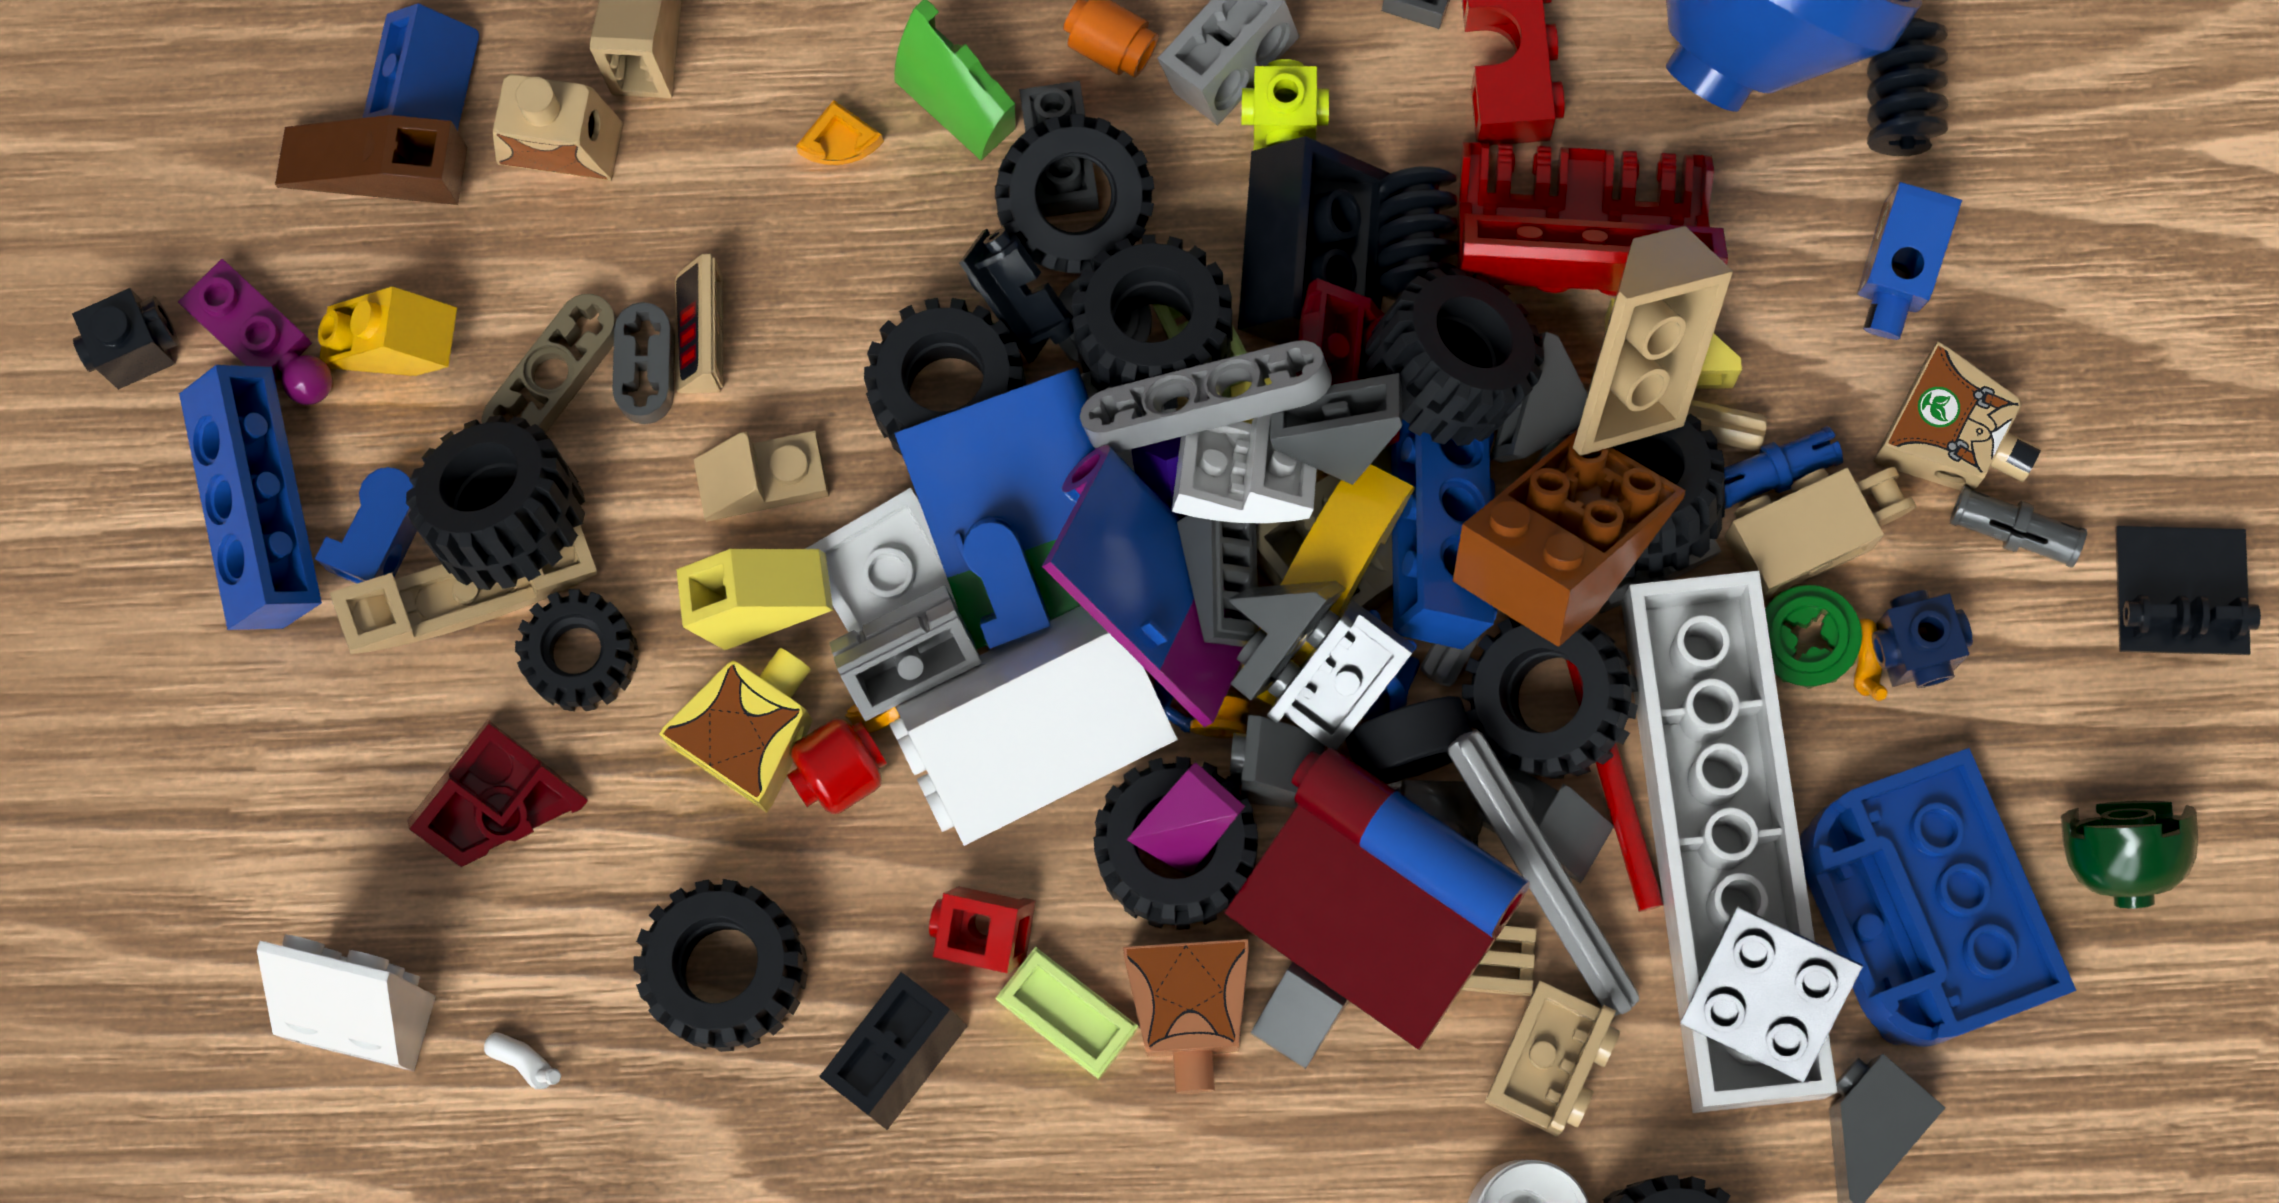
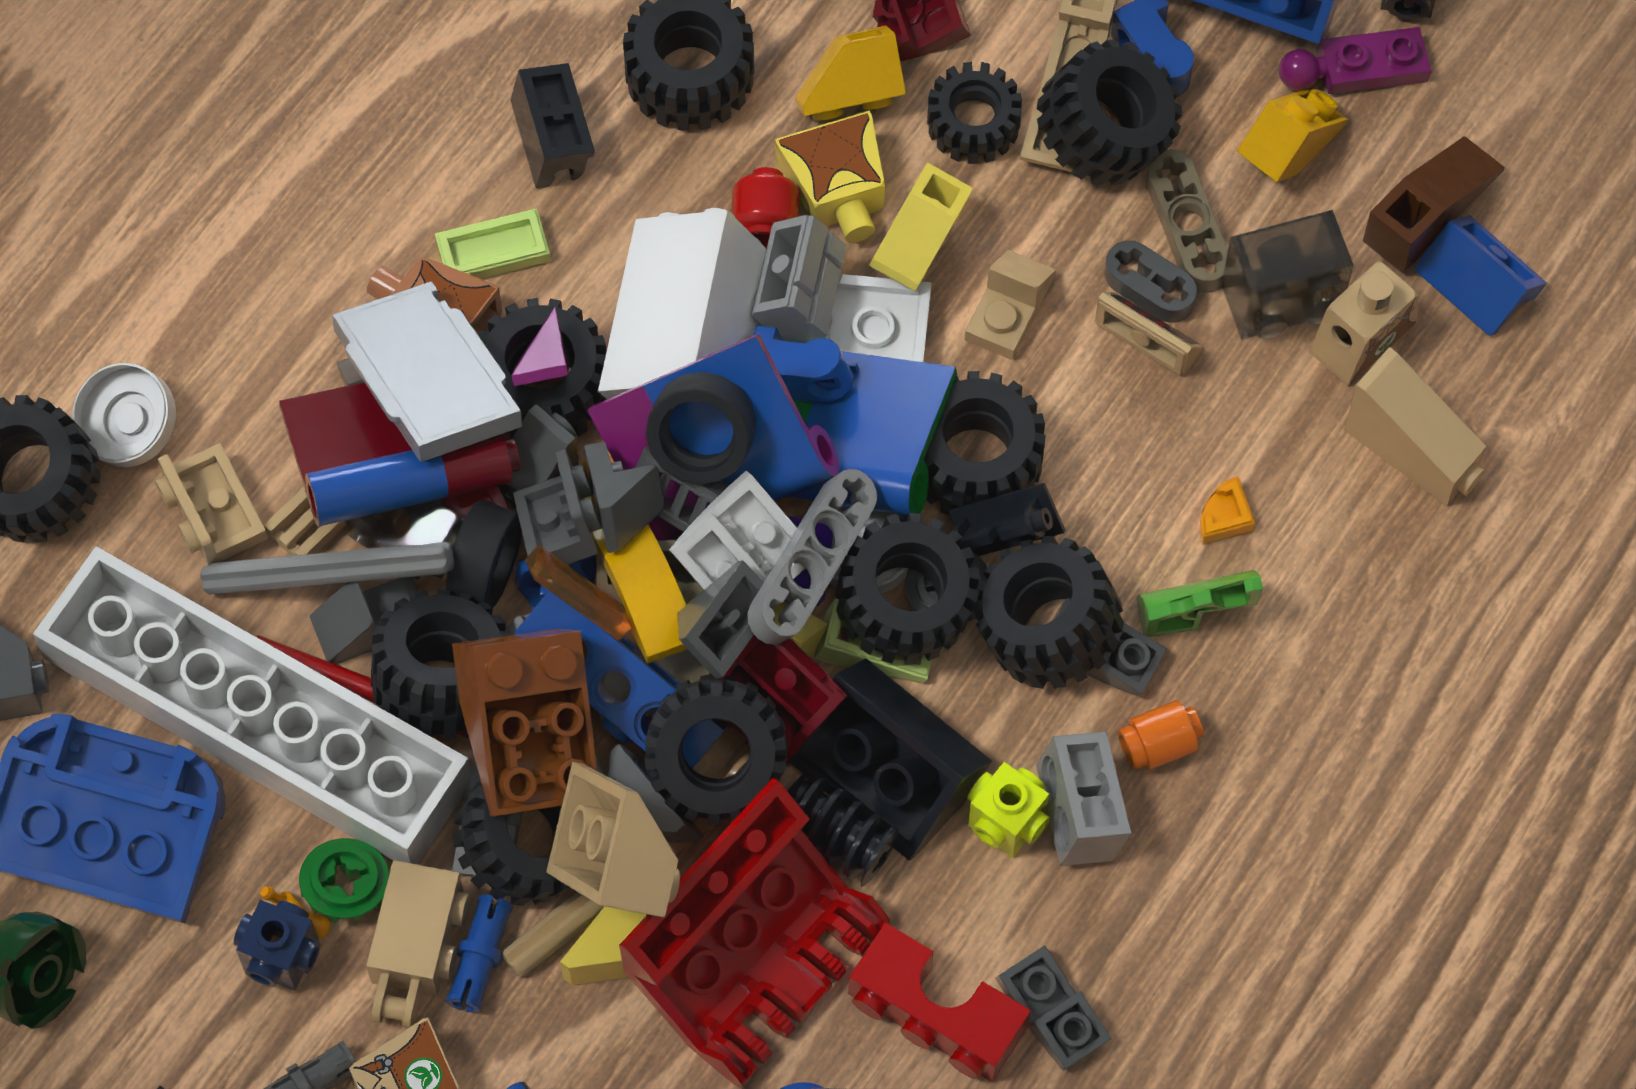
camera: 120 degrees right, 10 degrees down
(560, 218) = (1285, 274): none -> clear smoke brick
(623, 790) = (853, 71): none -> yellow slope
(960, 941) = (584, 225): red brick -> none
(1145, 592) = (682, 462): none -> black tyre
(1288, 911) = (428, 371): none -> piece
(1408, 585) = (578, 592): none -> clear orange tile
(1771, 993) = (126, 628): hinge -> none

